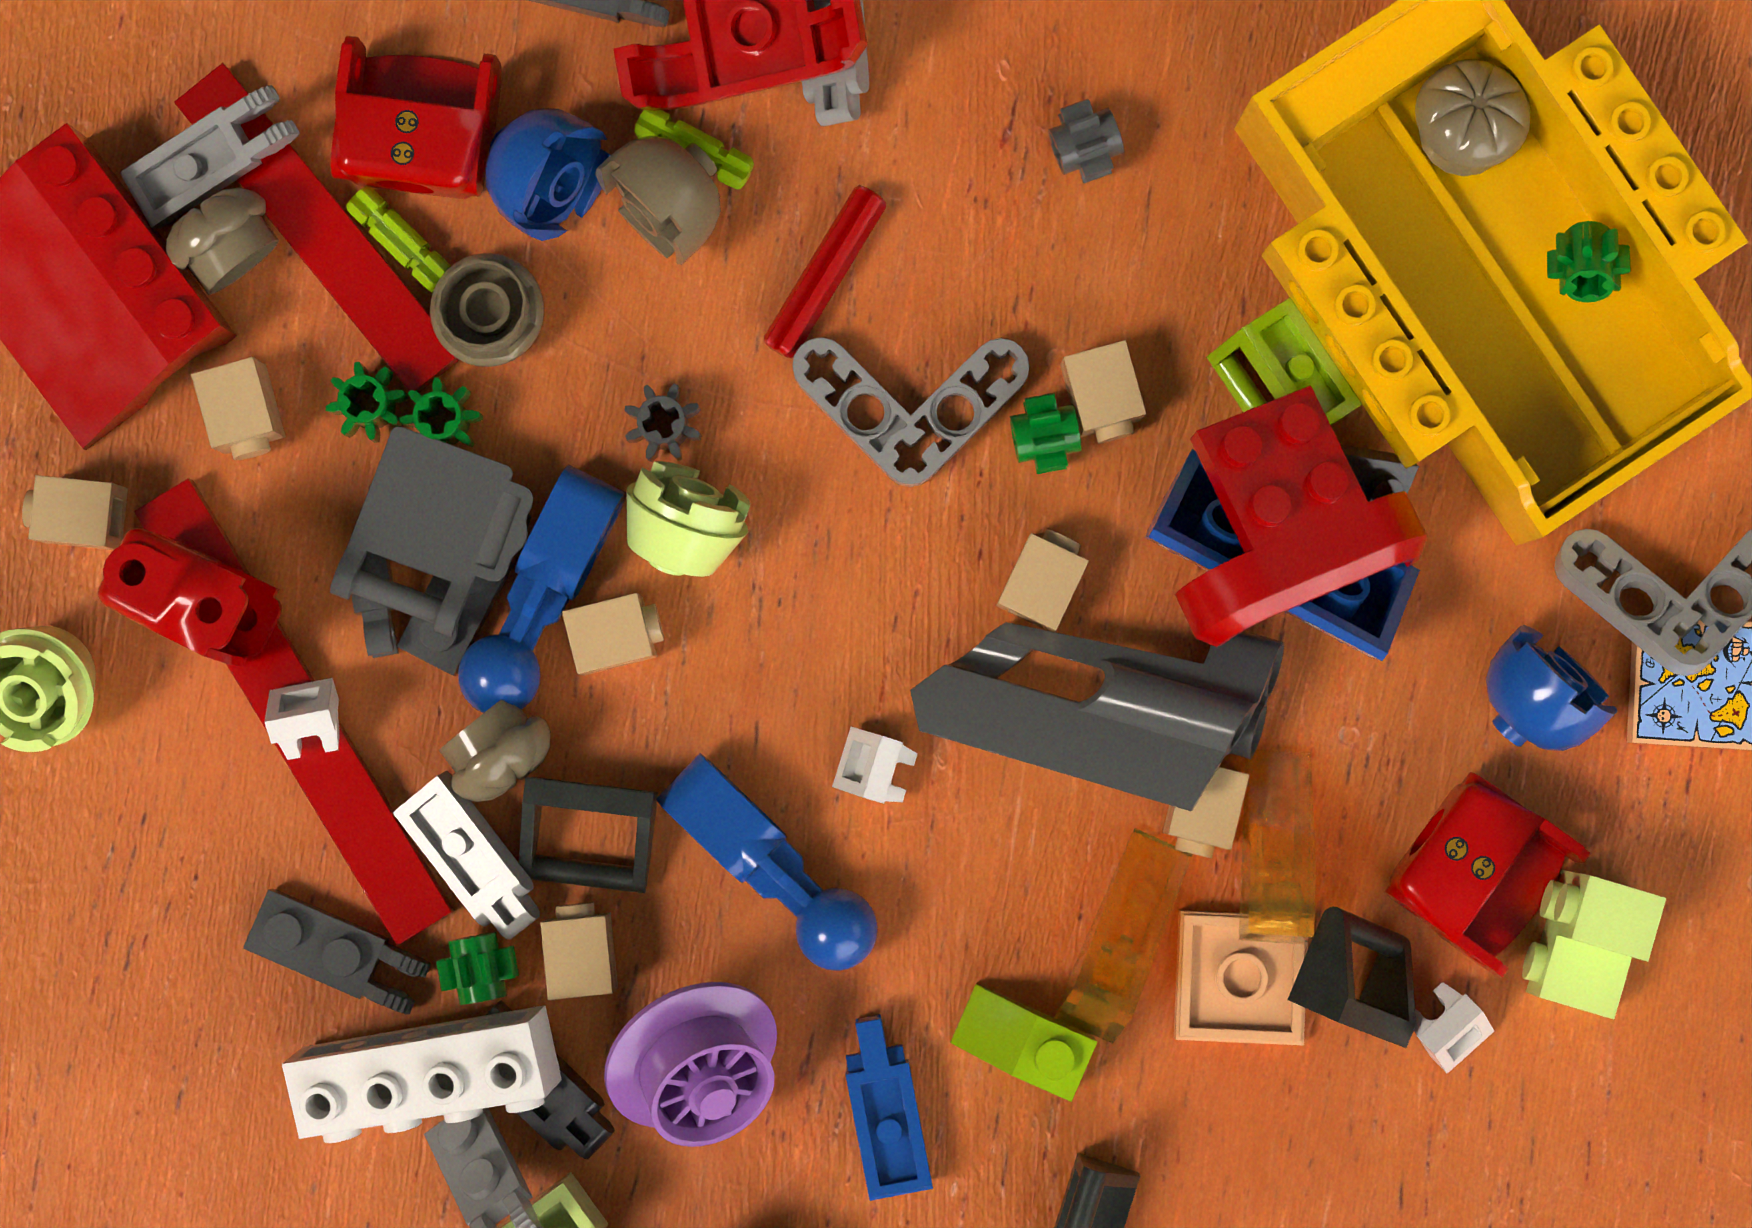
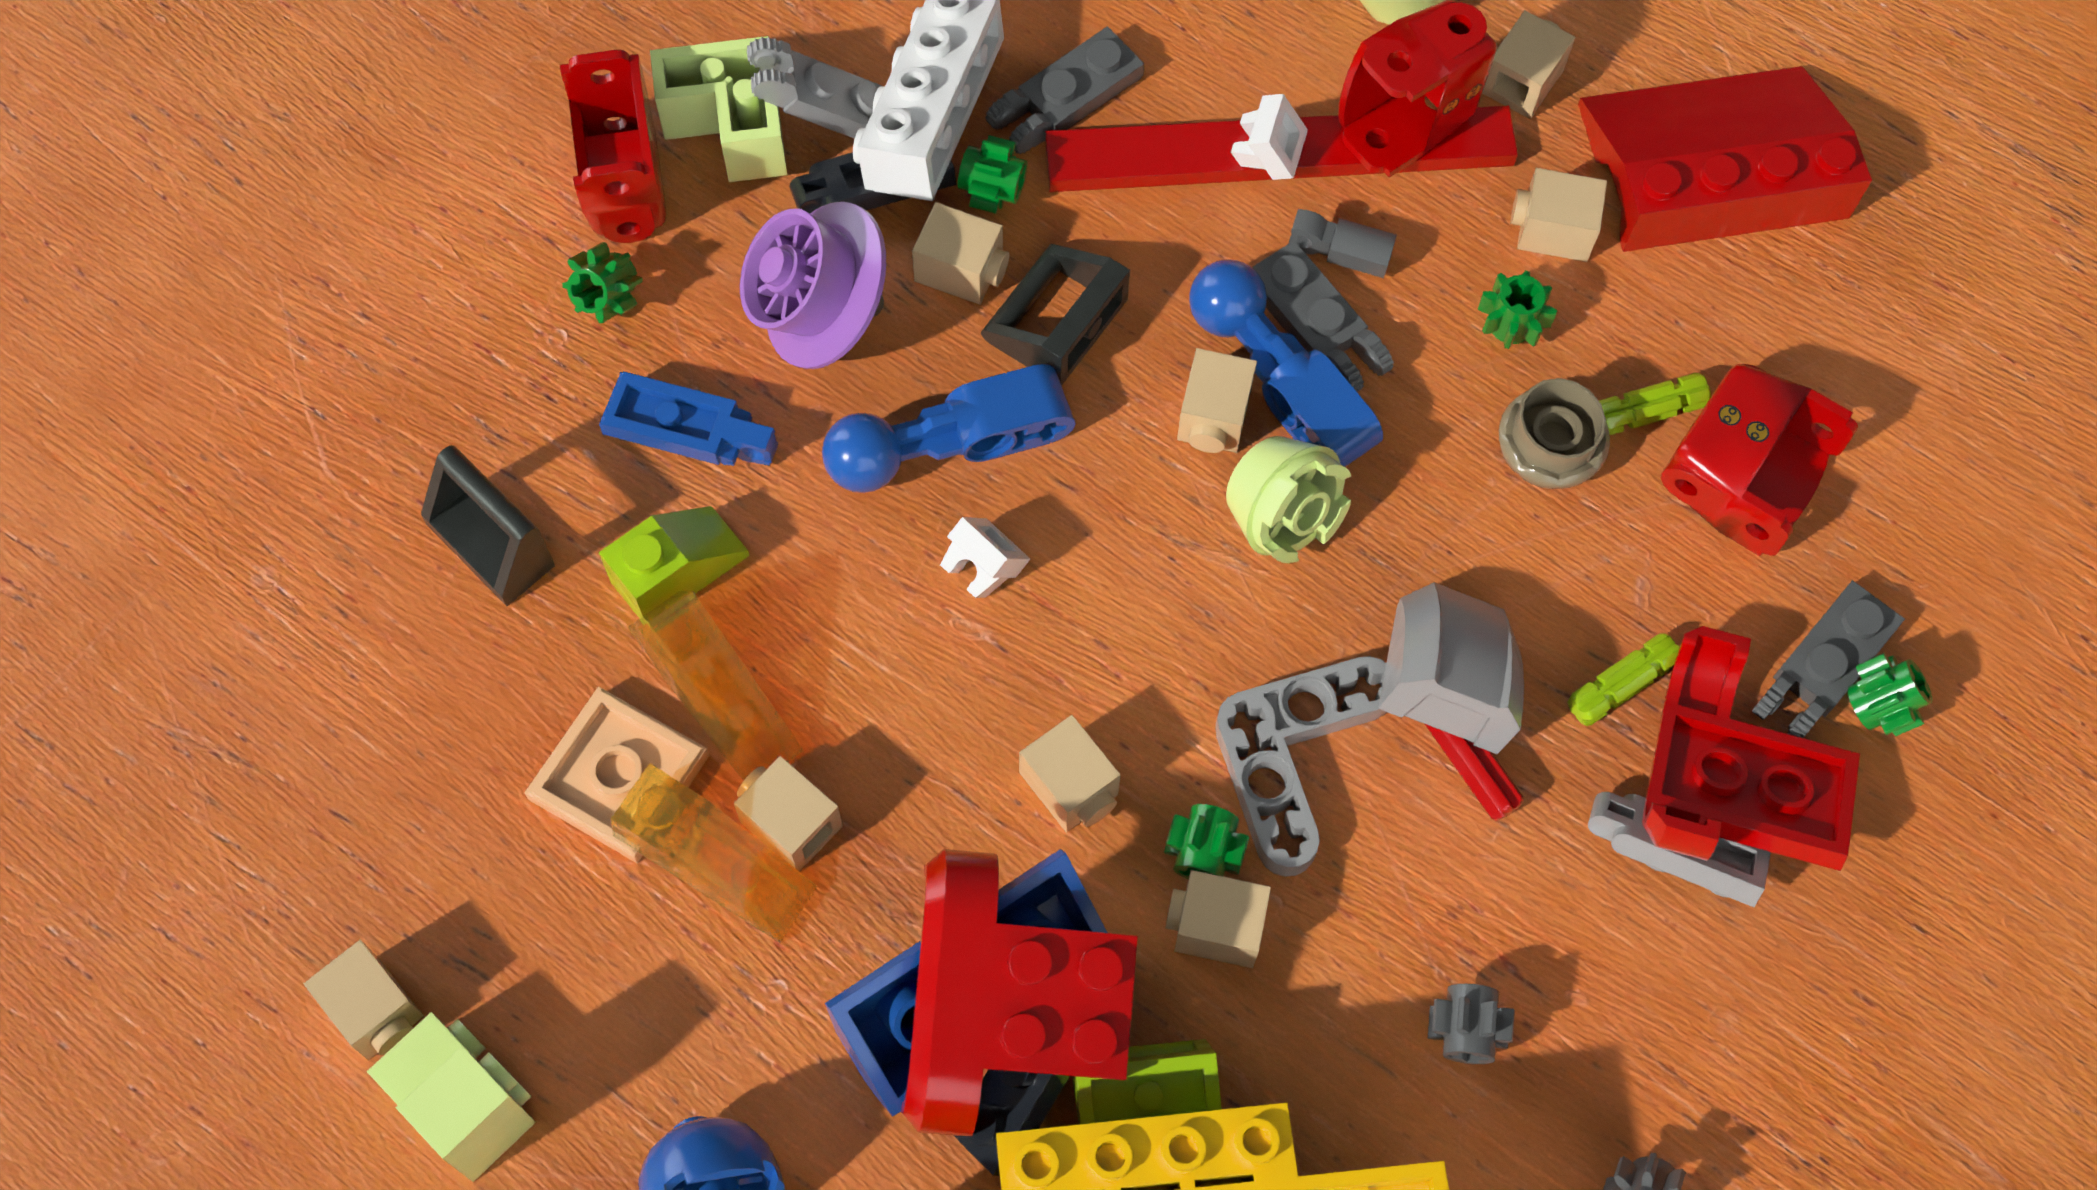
camera: 110 degrees right, 20 degrees down
(205, 158) = (1793, 280): light grey hinge -> none
(222, 238) = (1714, 258): dark tan piece -> none
(331, 245) = (1697, 343): red tile -> none
(428, 406) = (1476, 342): green gear -> none
(437, 515) = (1389, 310): dark grey piece -> none
(469, 856) = (1088, 213): hinge -> none
(496, 751) = (1163, 263): dark tan piece -> none
(544, 170) = (1658, 534): blue cylinder -> none
(646, 419) = (1398, 528): dark grey gear -> none
(664, 193) = (1594, 618): dark tan cylinder -> none
(767, 297) = (1455, 667): none -> light grey slope
(1148, 729) = (889, 788): dark grey panel -> none
(1327, 977) = (507, 859): pearl dark grey tile -> none
(1455, 1031) = (450, 928): white tile -> none
(1481, 870) = (575, 1031): red piece -> none
(1551, 1064) = (364, 1001): none -> tan brick

